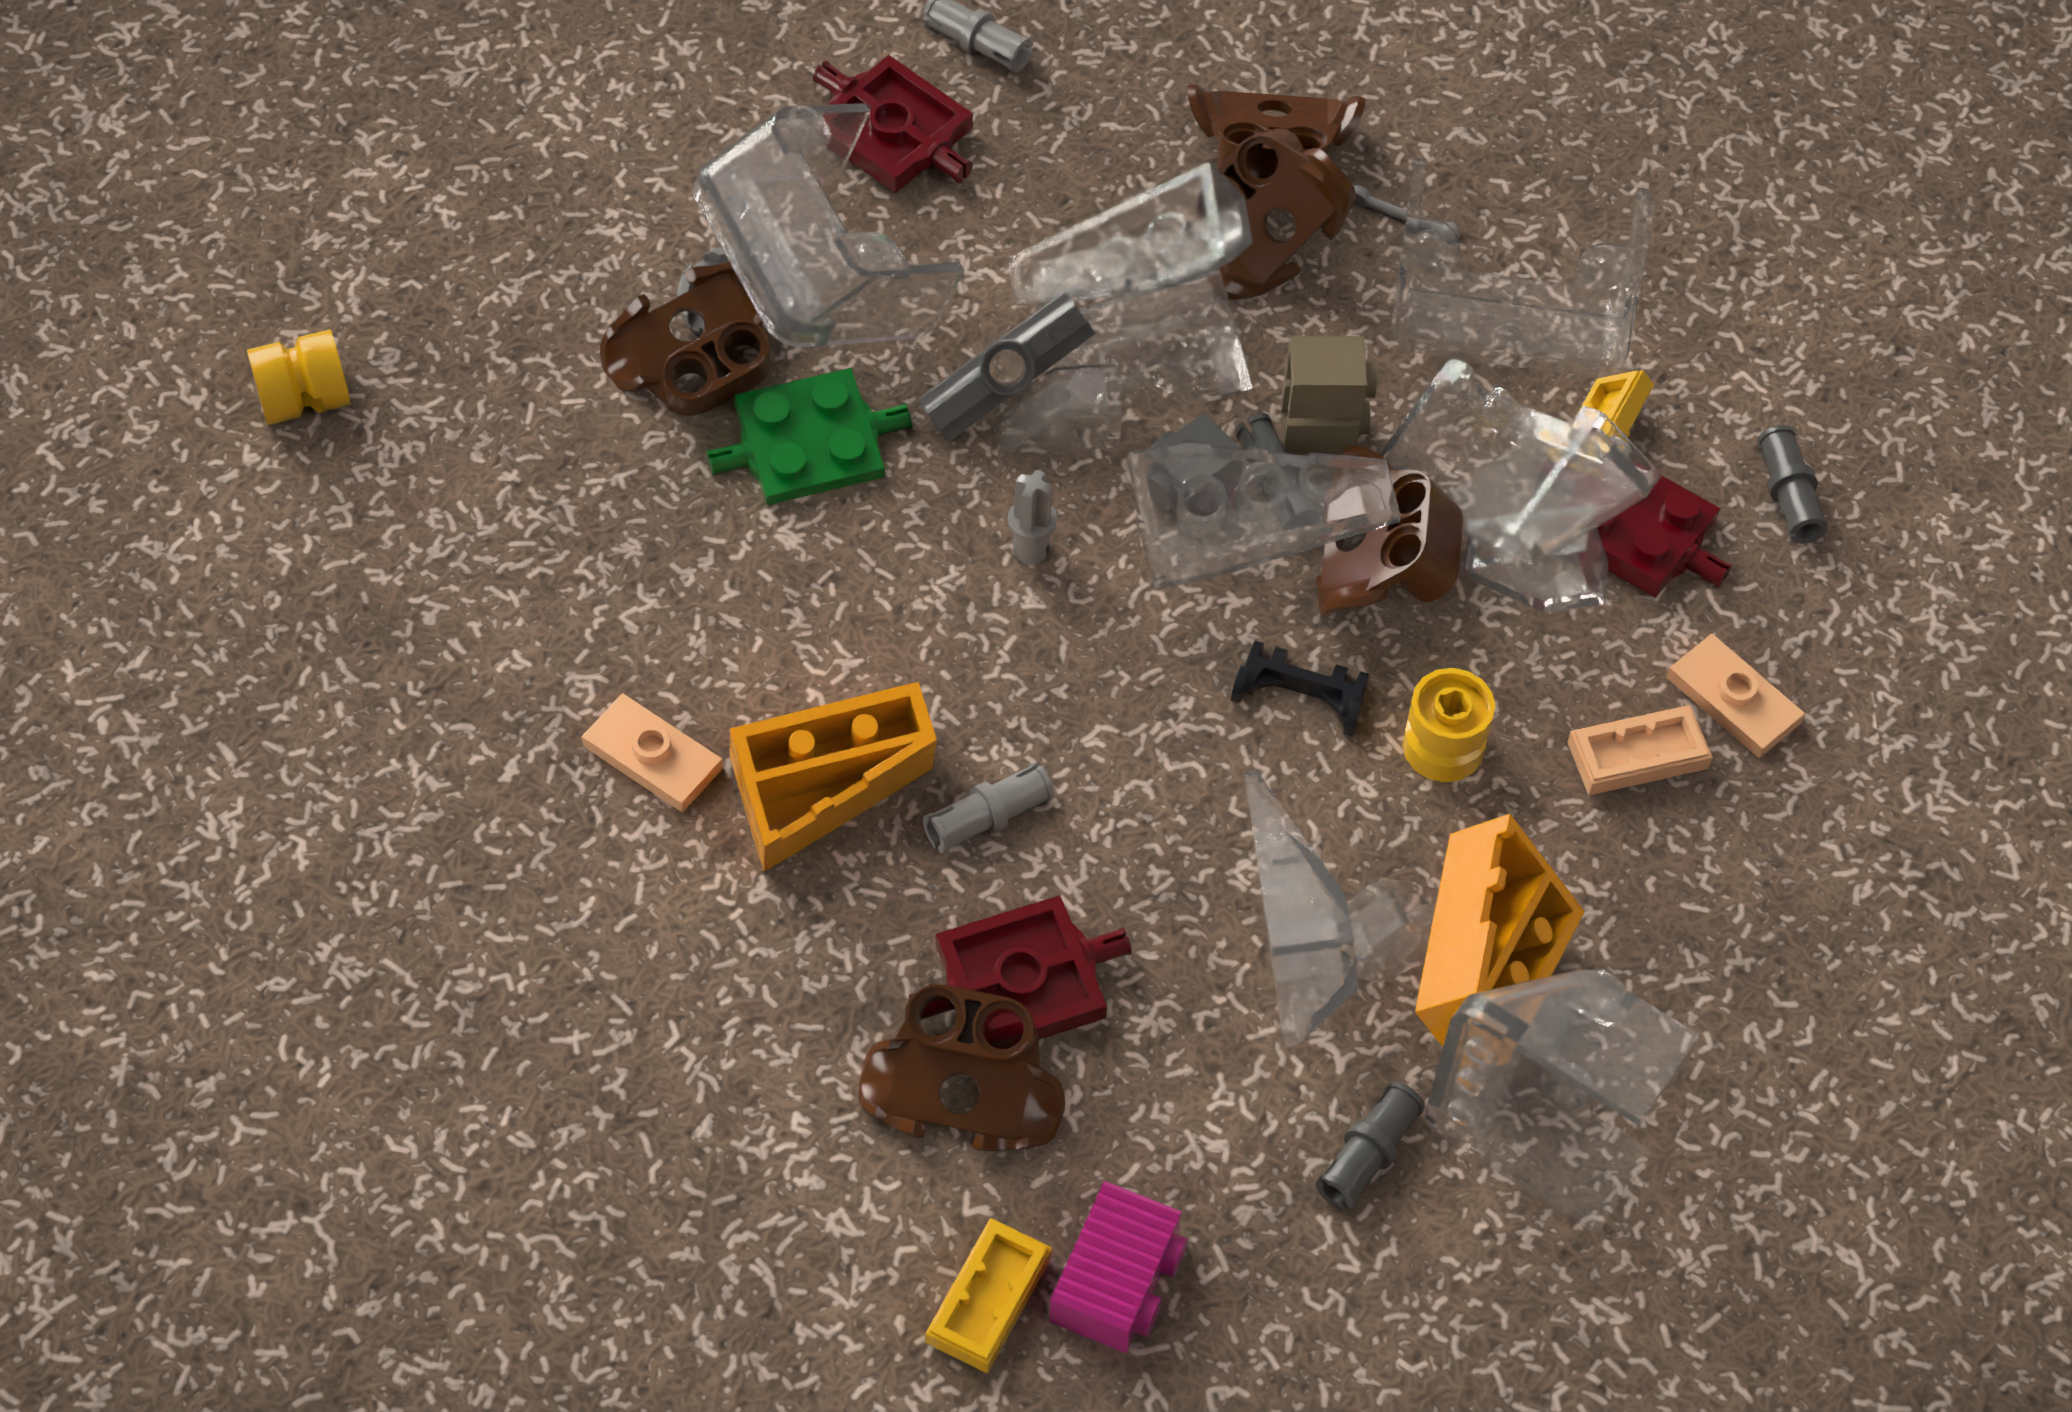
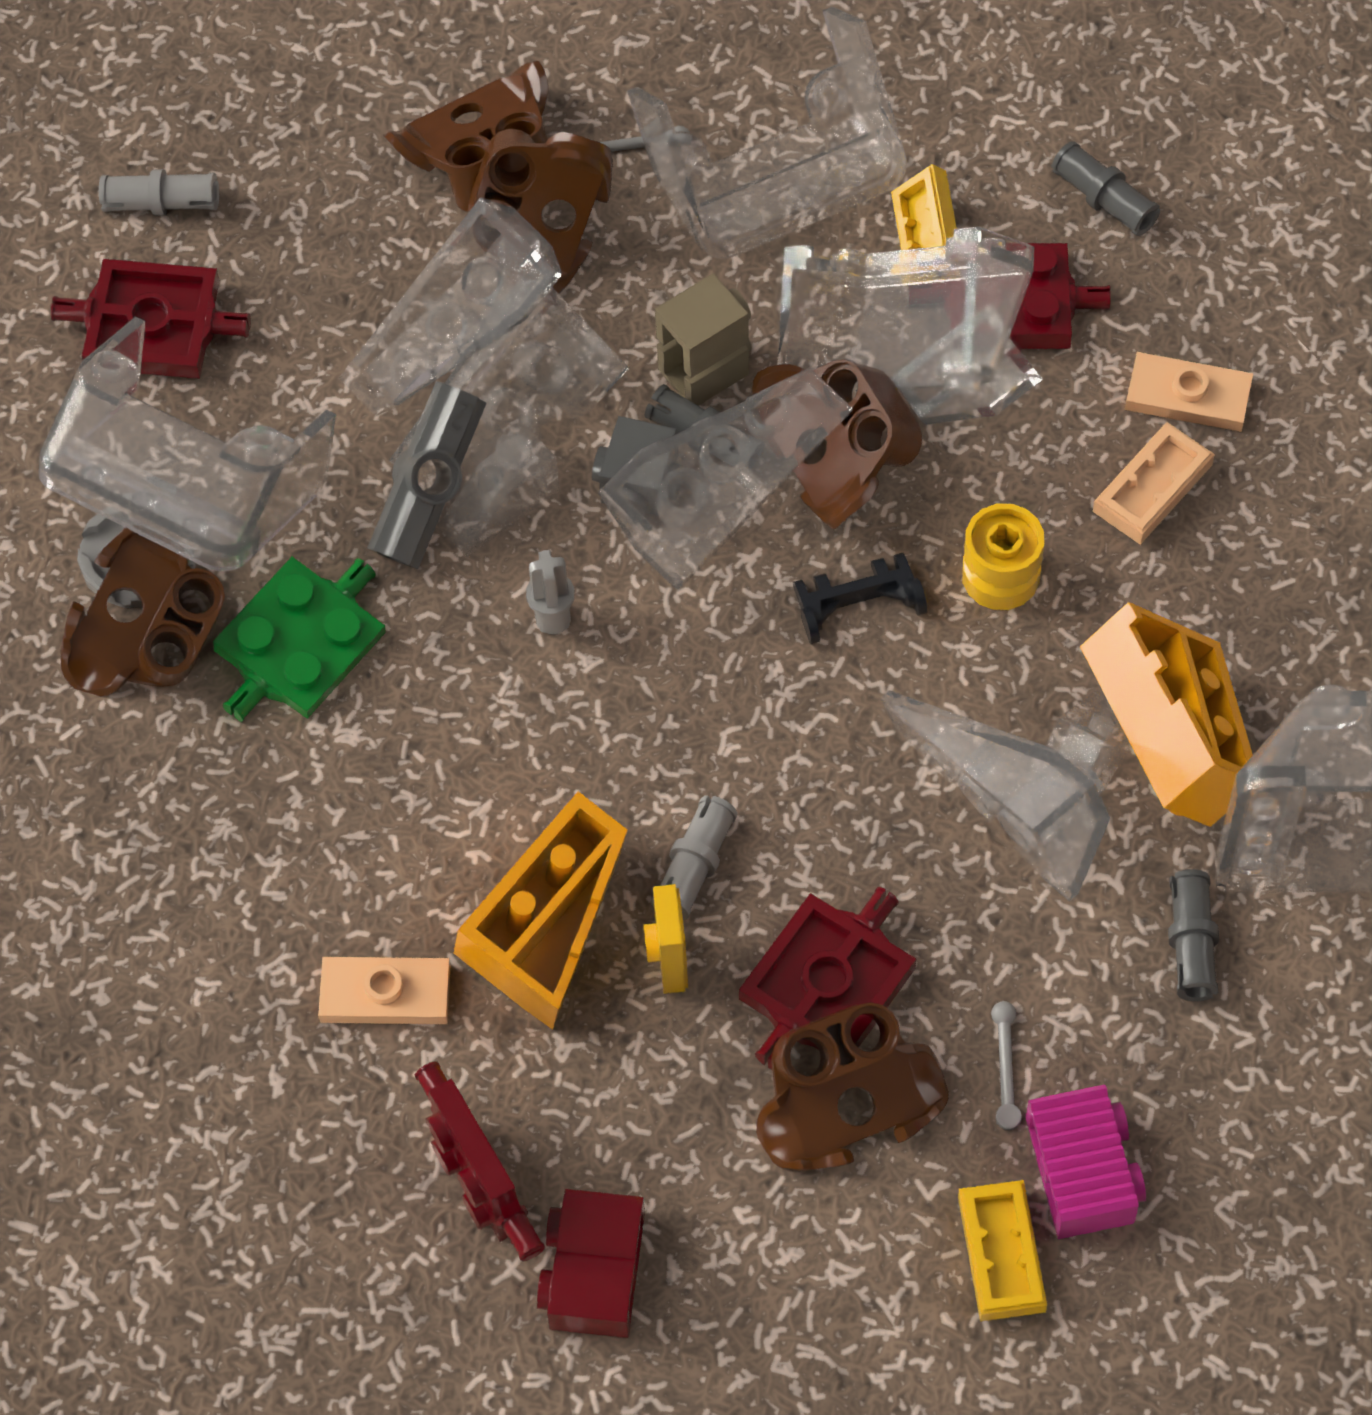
camera: 30 degrees left, 5 degrees up
(598, 932) = (464, 1148): none -> dark red plate
(638, 1074) = (593, 1263): none -> dark red brick
(904, 852) = (666, 939): none -> yellow plate
(1151, 1105) = (1008, 1115): none -> light grey hinge

